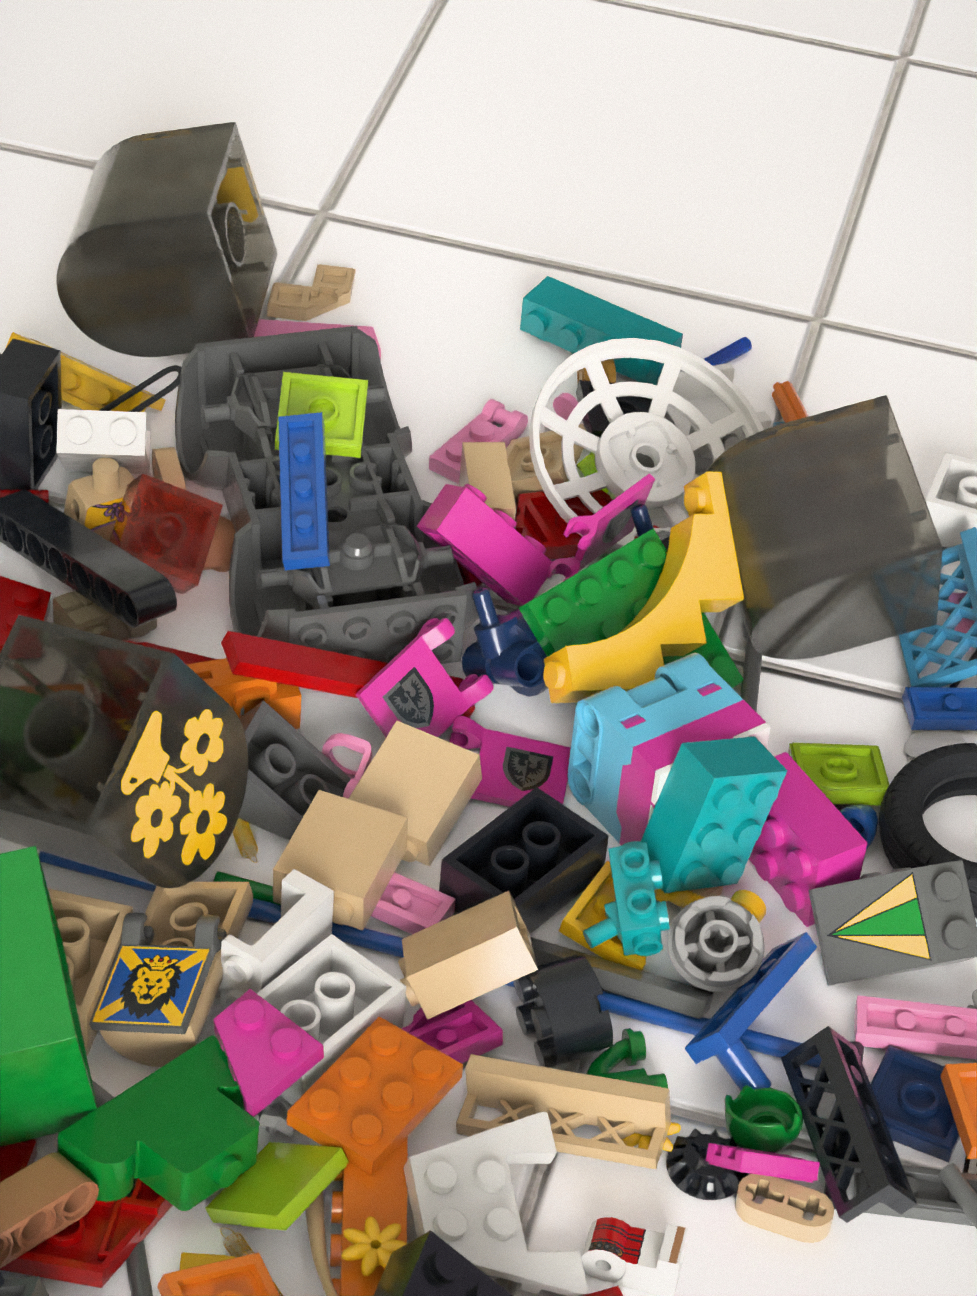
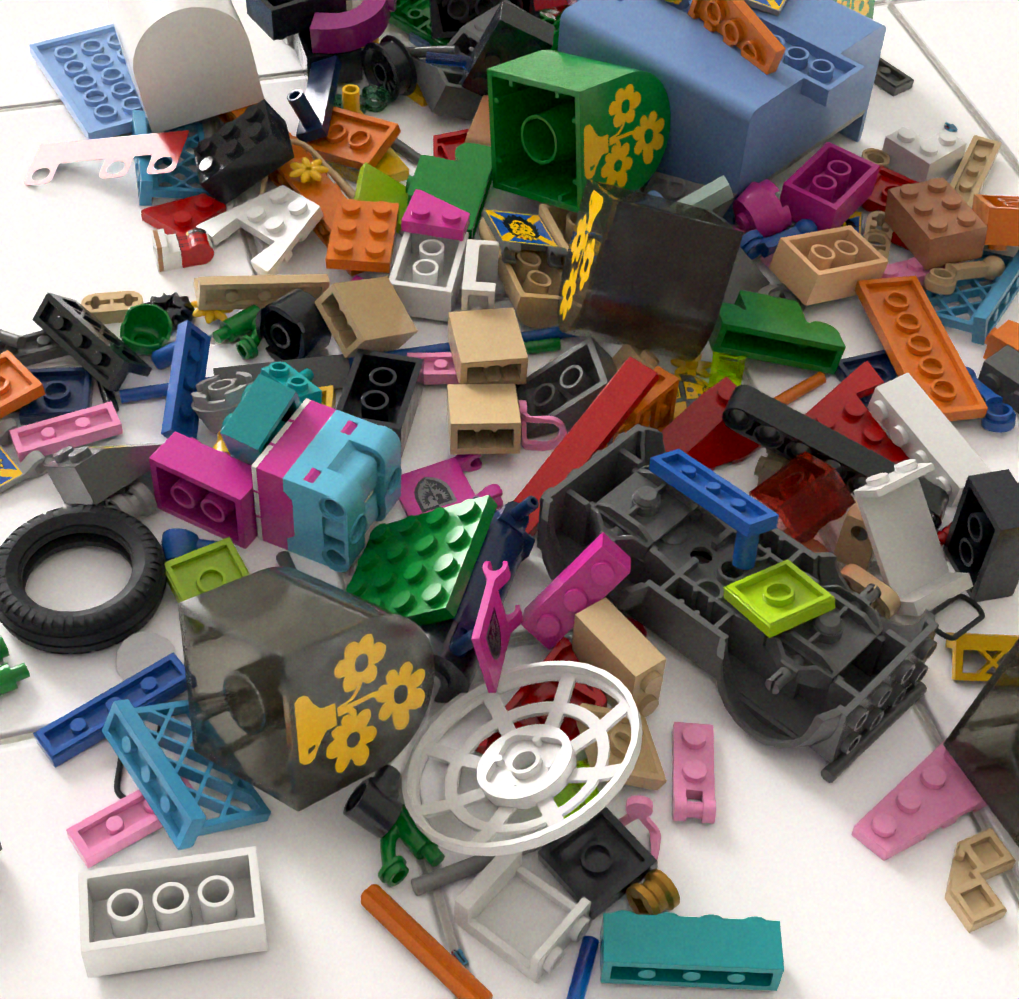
camera: 150 degrees right, 5 degrees up
(418, 688) = (533, 468): dark pink flag -> none
(695, 579) = (395, 534): yellow arch -> none
(762, 1162) = (148, 275): dark pink tile -> none

